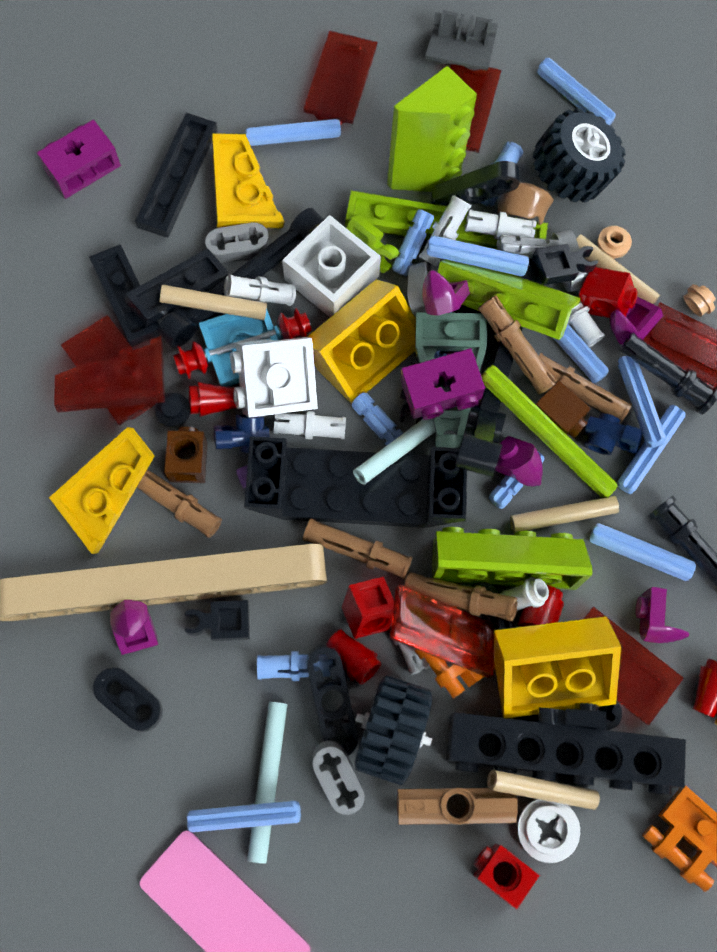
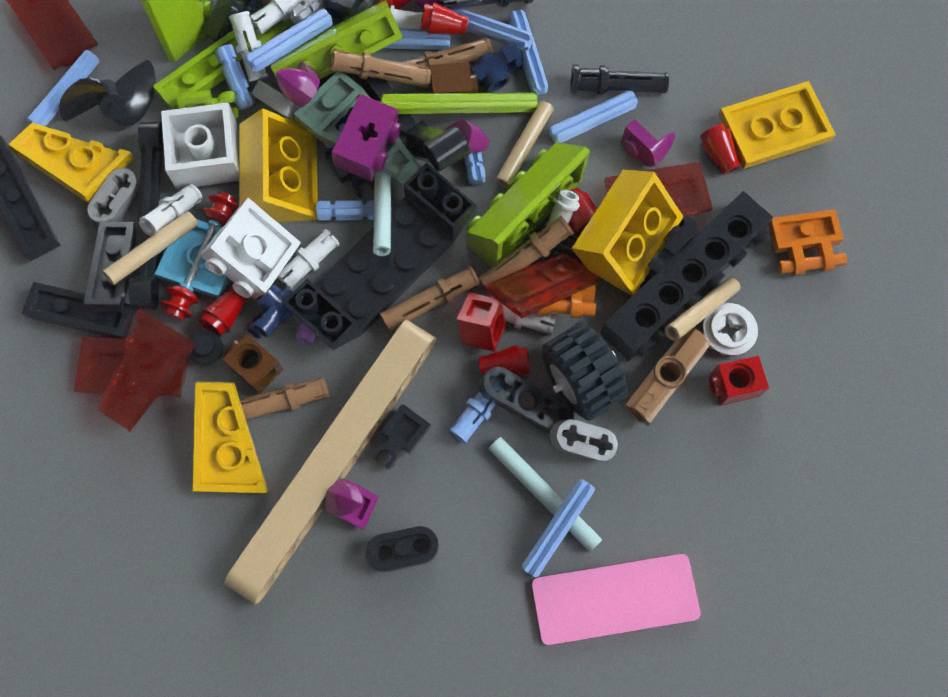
camera: 50 degrees left, 0 degrees up
(316, 176) = (120, 100): none -> black piece
(609, 357) = (442, 21): none -> red cone

